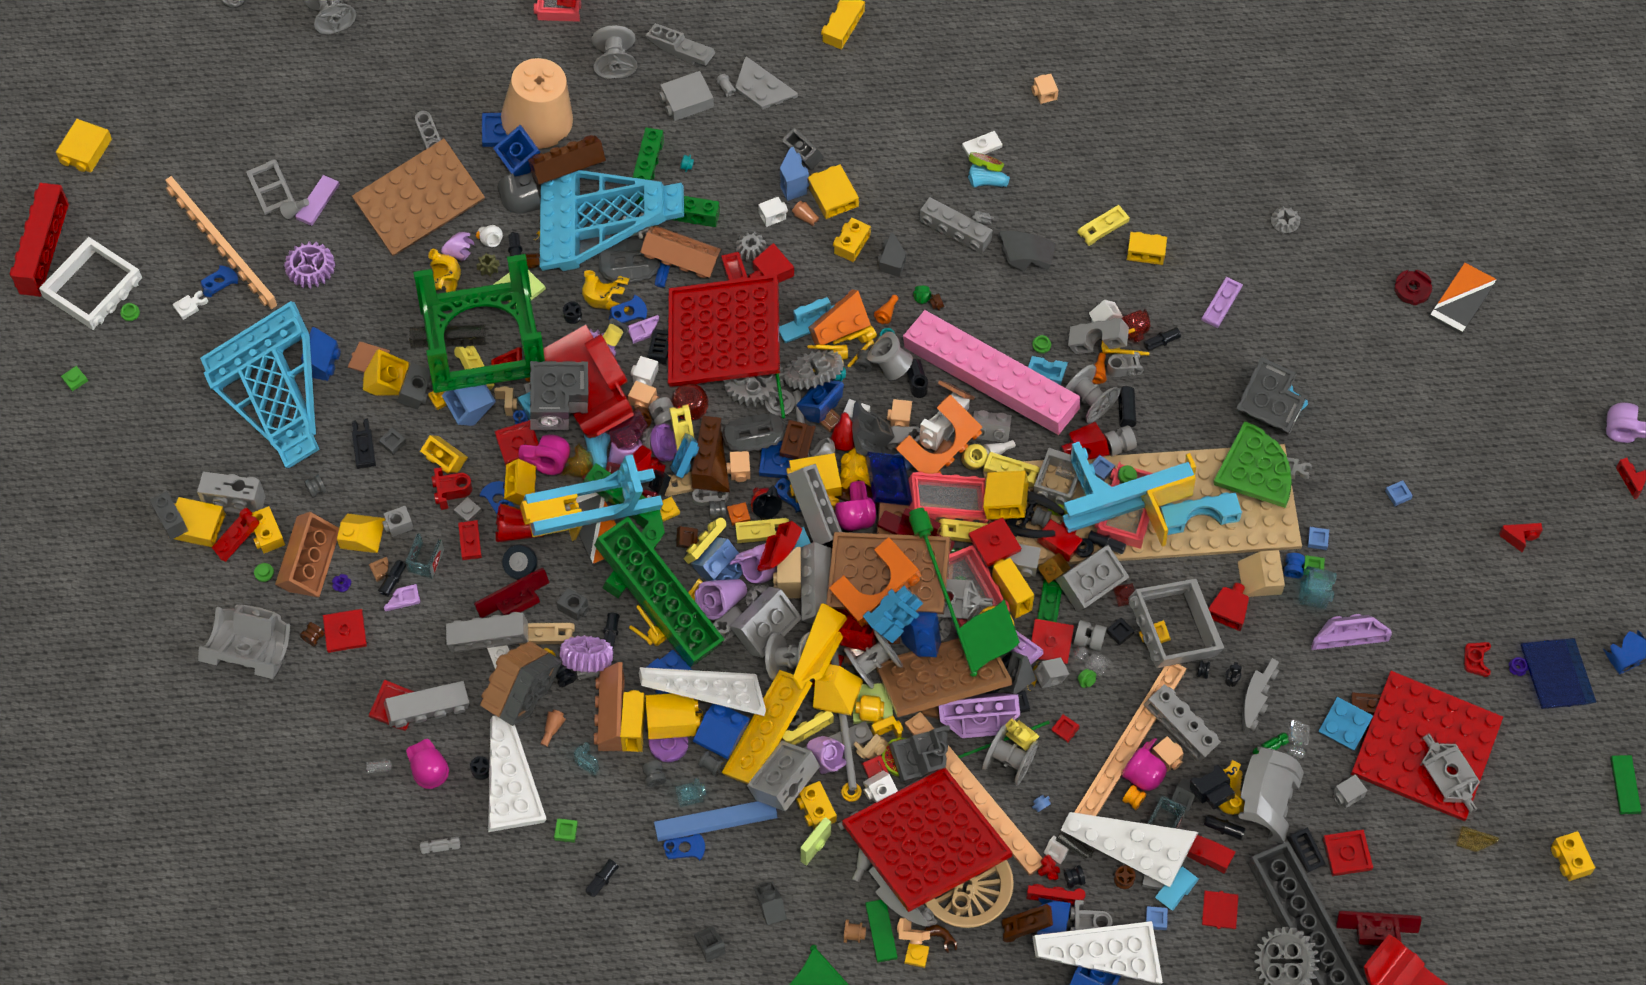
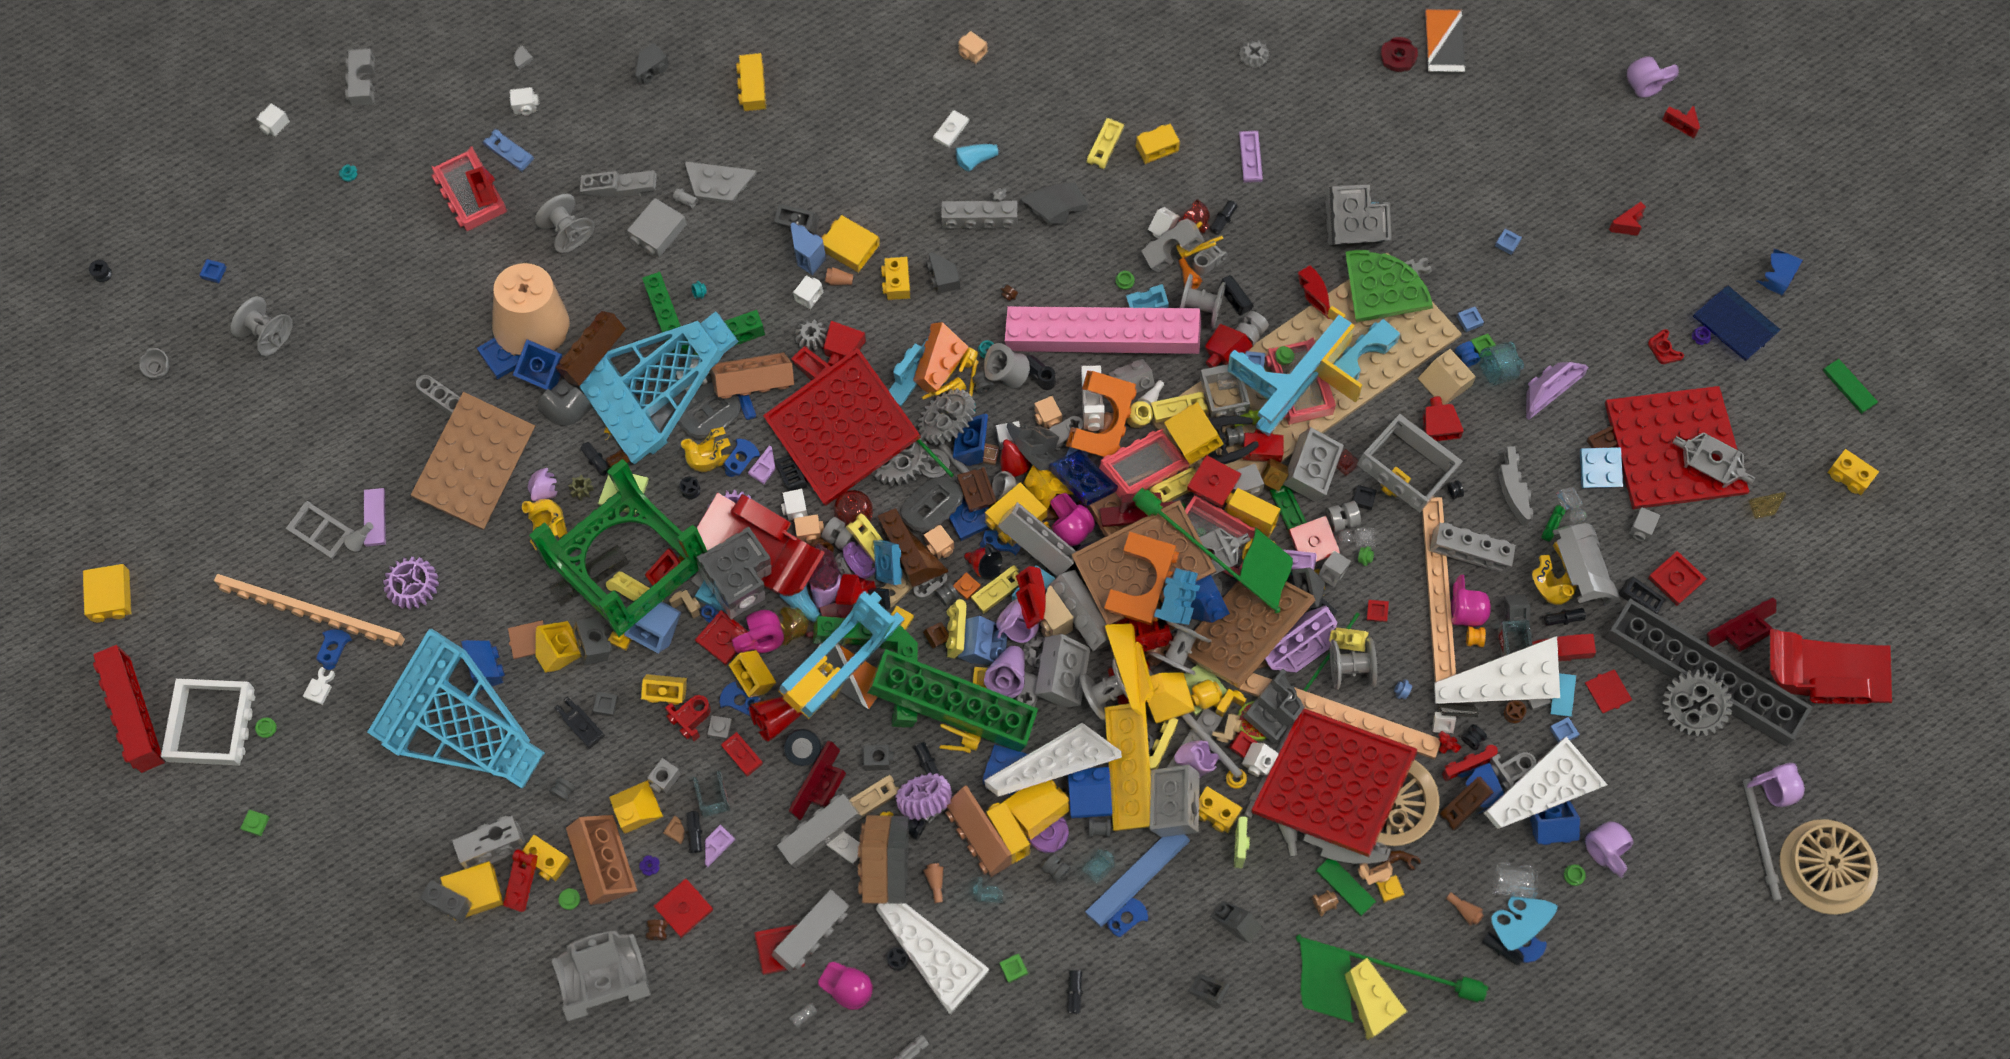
camera: 30 degrees left, 5 degrees up
(490, 235) = (563, 459): white animal -> none
(613, 333) = (743, 485): light yellow leg -> none
(884, 313) = (971, 330): orange cone -> none
(922, 294) = (992, 293): green plate -> none
(956, 390) = (1083, 363): nougat piece -> none
(981, 159) = (966, 141): lime tile -> none
(1087, 551) = (1294, 441): black plate -> none
(1101, 540) = (1302, 425): black axle -> none
(1169, 753) = (1478, 580): light nougat brick -> none
(1196, 437) = (1314, 290): none -> red slope
(1213, 788) = (1543, 590): black piece -> none
(1233, 674) = (1485, 480): black axle -> none

